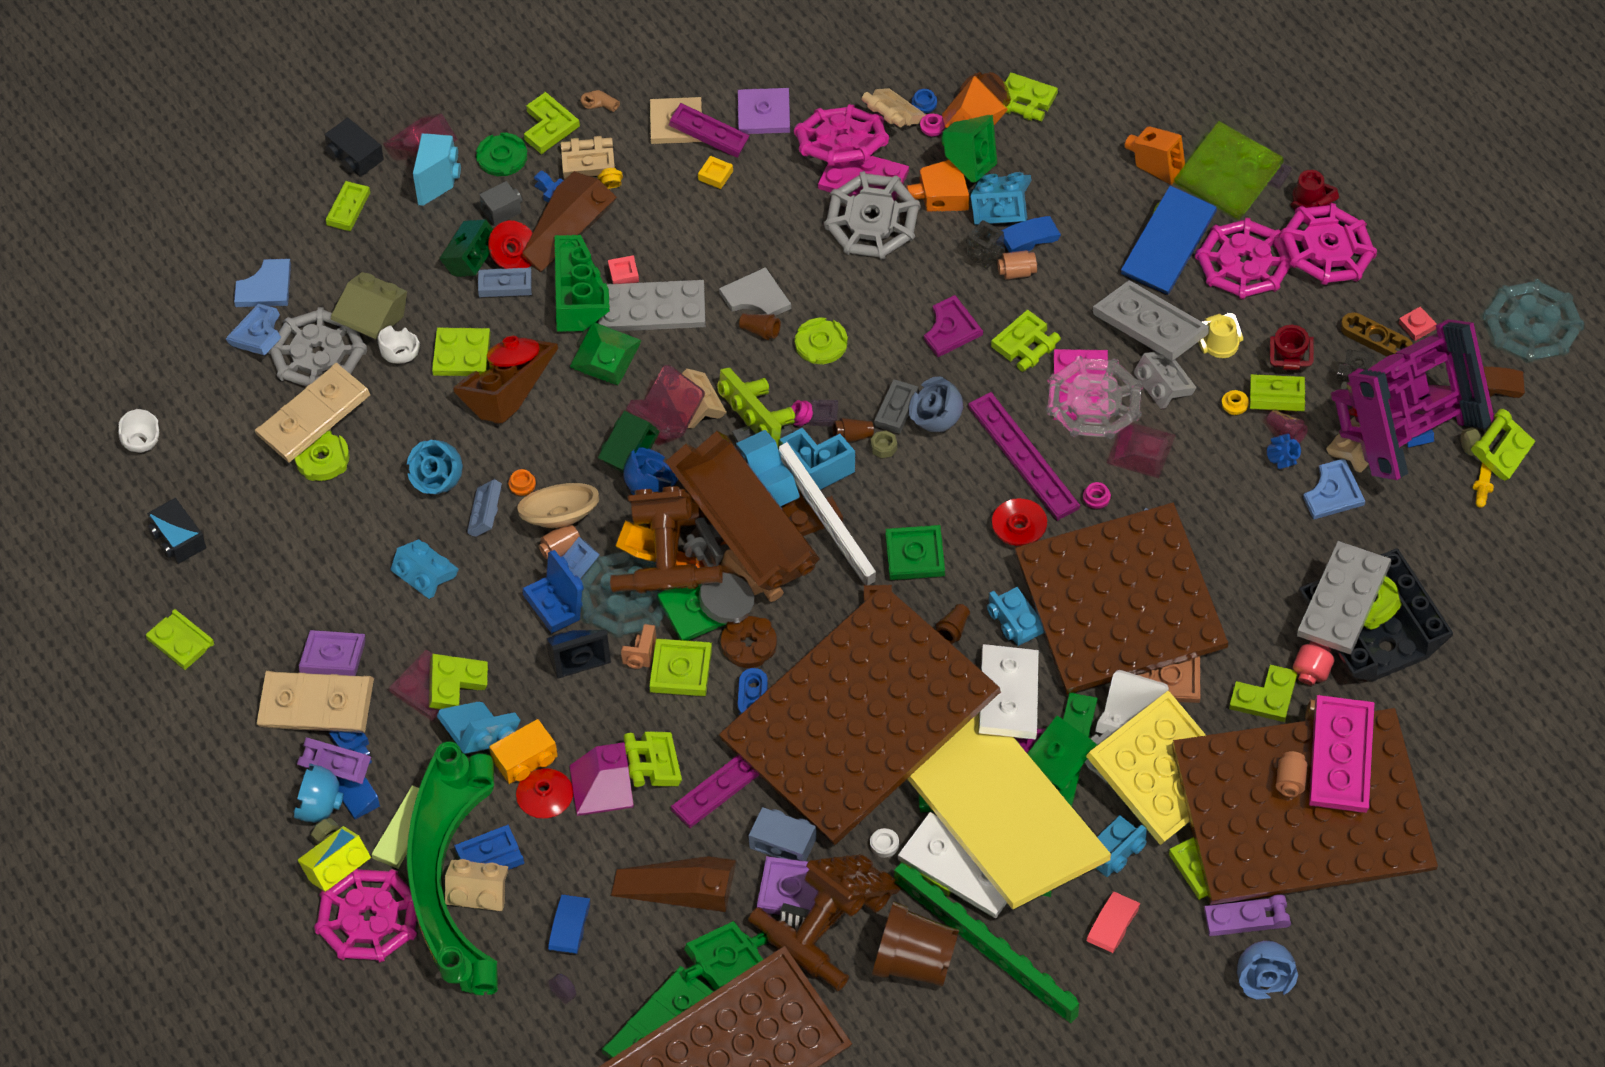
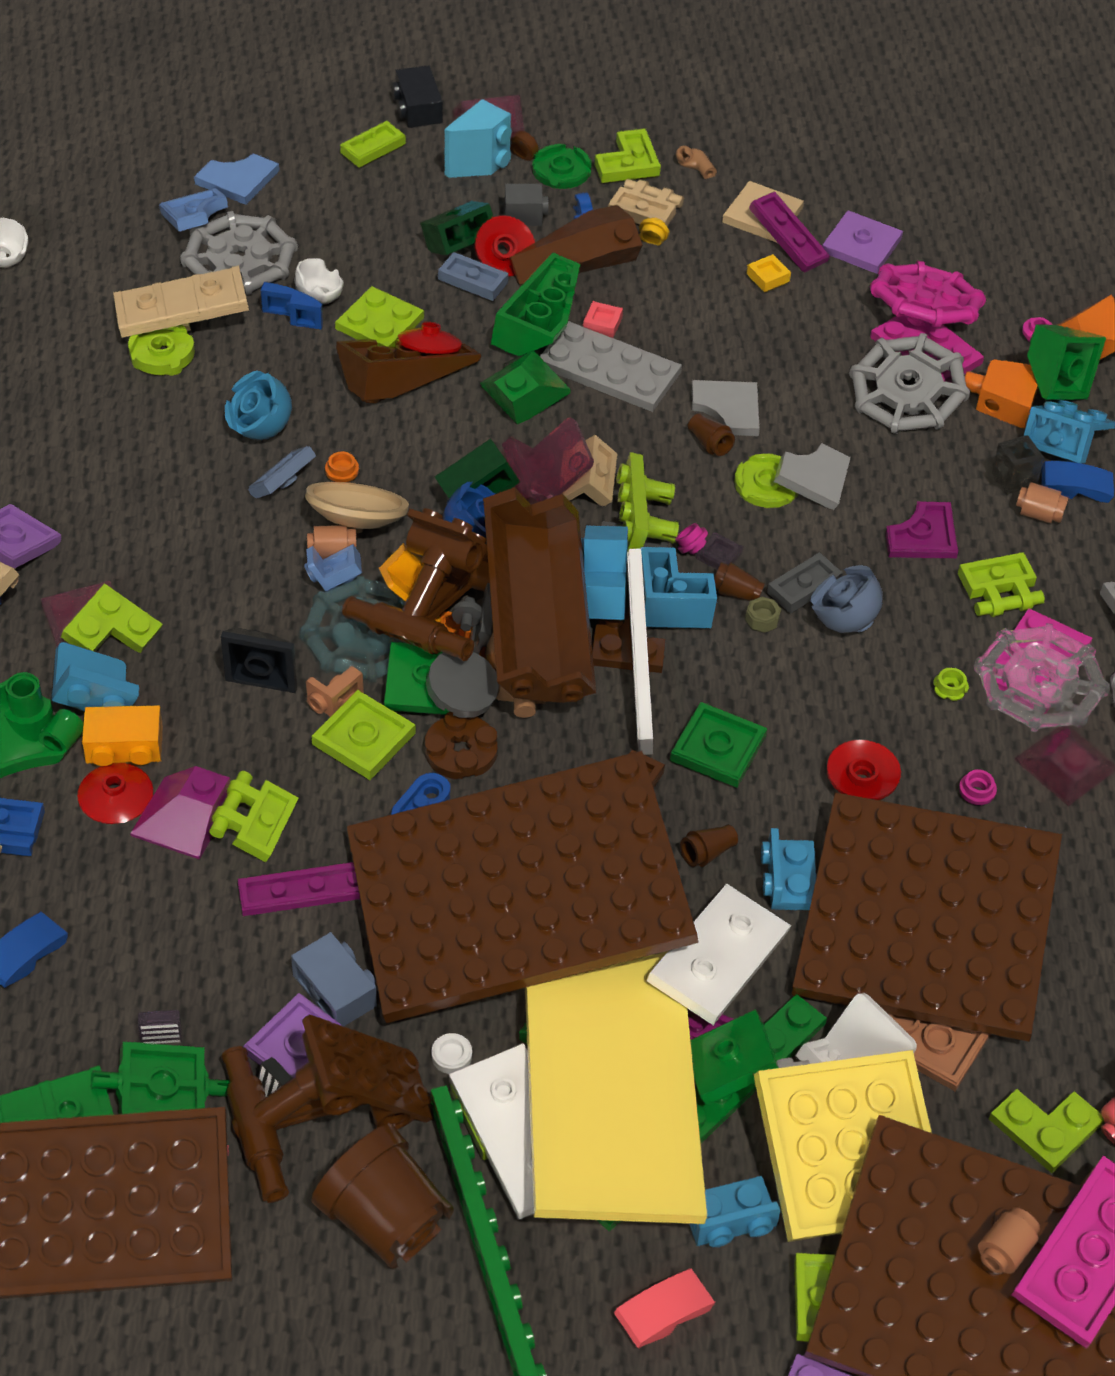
camera: 25 degrees right, 5 degrees down
(370, 305) = (317, 231): olive slope -> none
(402, 372) = (301, 308): none -> blue slope
(422, 567) = (173, 498): dark azure bracket -> none
(466, 151) = (523, 145): none -> reddish brown tile
(556, 596) = (280, 591): blue bracket -> none
(686, 883) = (187, 974): reddish brown wedge -> none
(696, 923) = (160, 1026): none -> tile
(853, 321) = (815, 475): none -> light grey tile
(893, 107) = (1002, 293): tan plate -> none
(924, 100) = (1044, 304): blue plate -> none
(1024, 456) = (919, 706): magenta tile -> none
(1037, 425) = (952, 677): none -> lime plate

